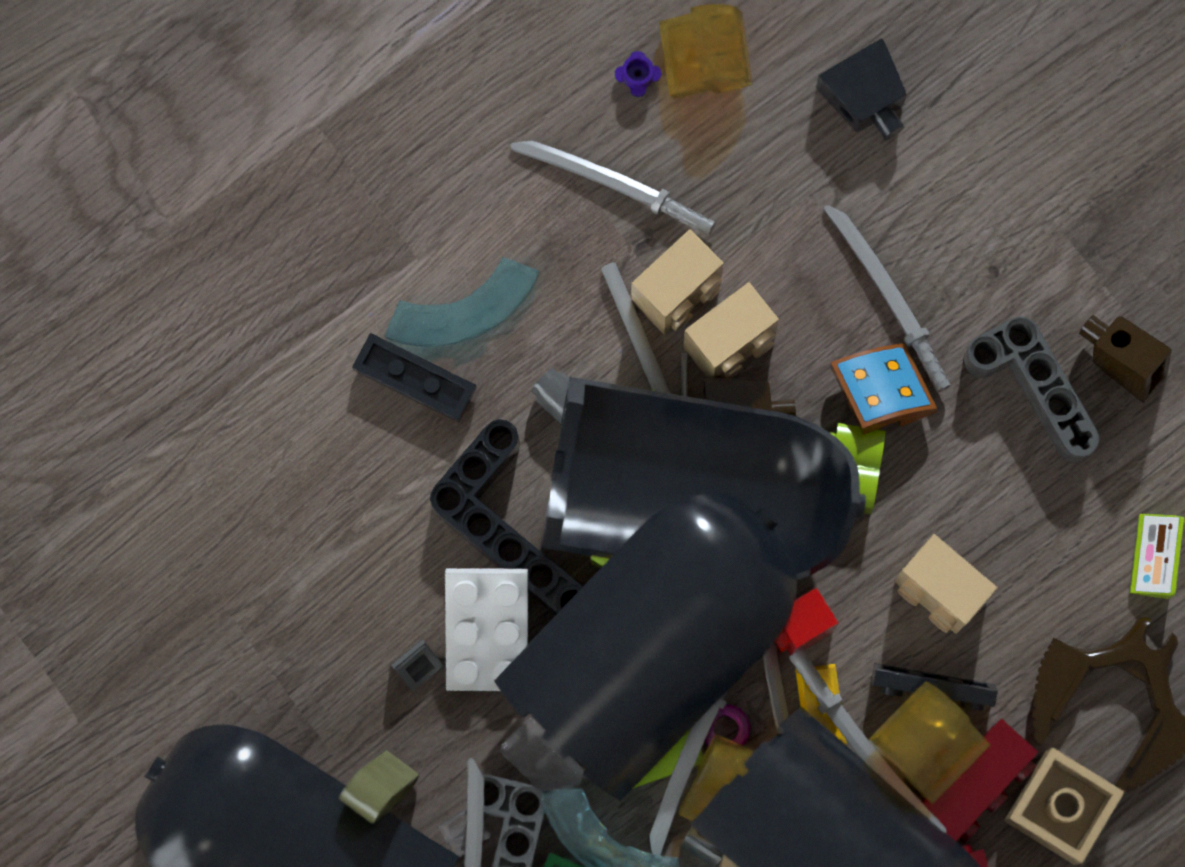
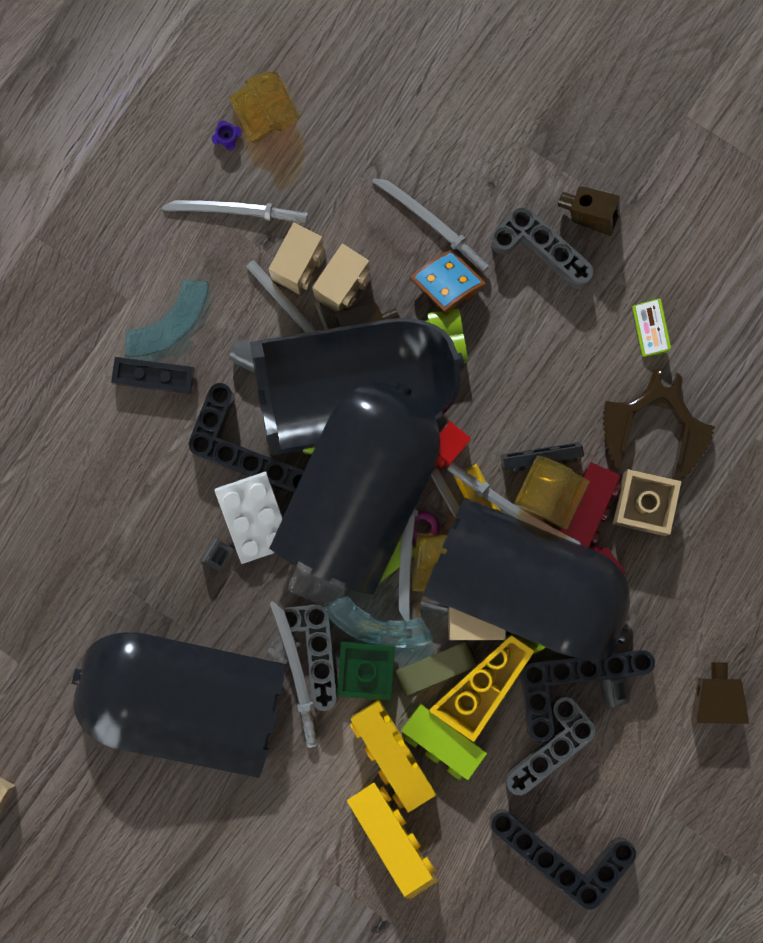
camera: 20 degrees left, 5 degrees up
(379, 786) = (220, 639): olive beam -> none
(866, 90) = (373, 97): black torso -> none
(944, 585) = (528, 392): tan brick -> none

